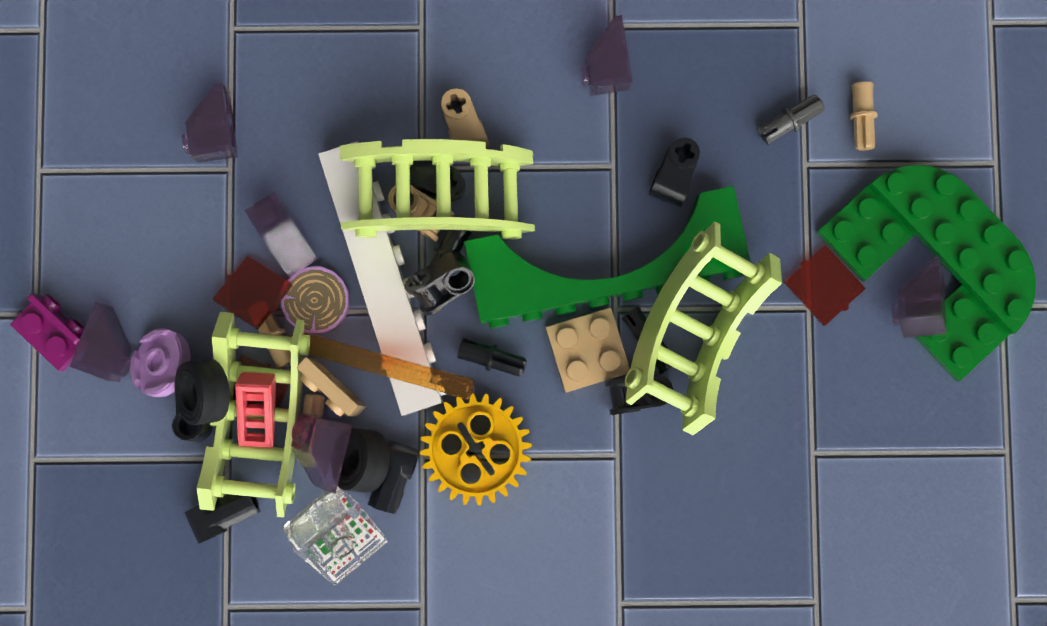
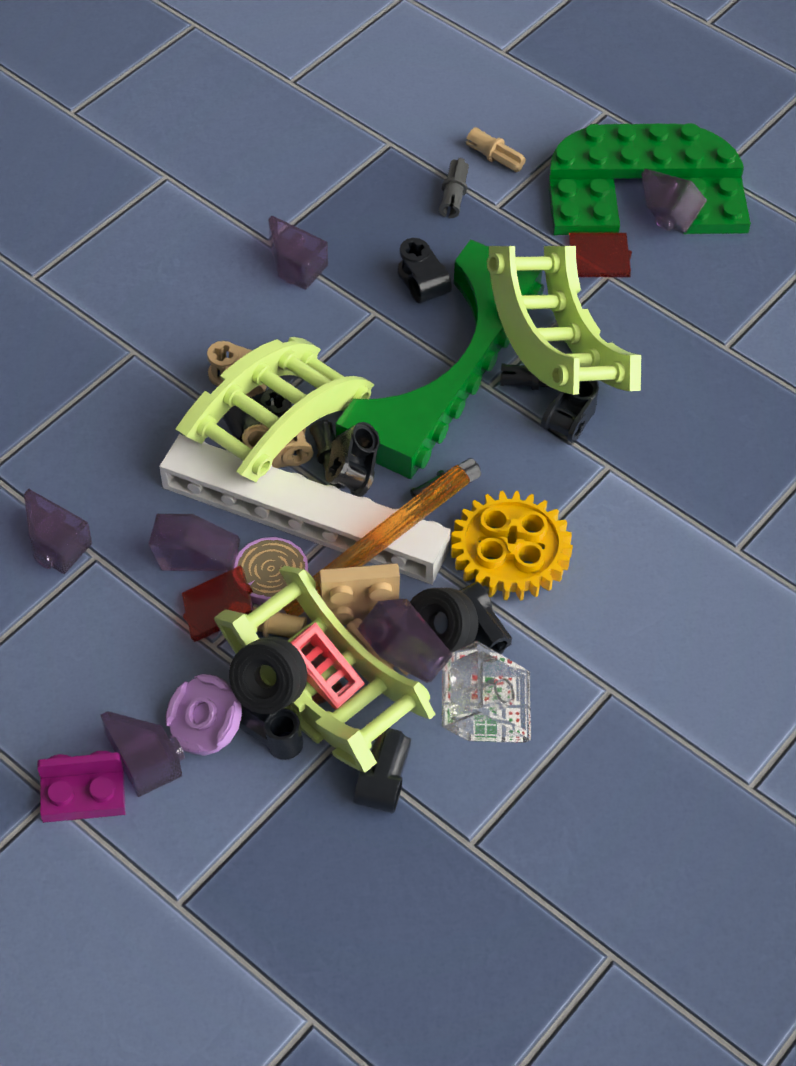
camera: 50 degrees left, 30 degrees down
(588, 350) = (503, 423): tan plate -> none

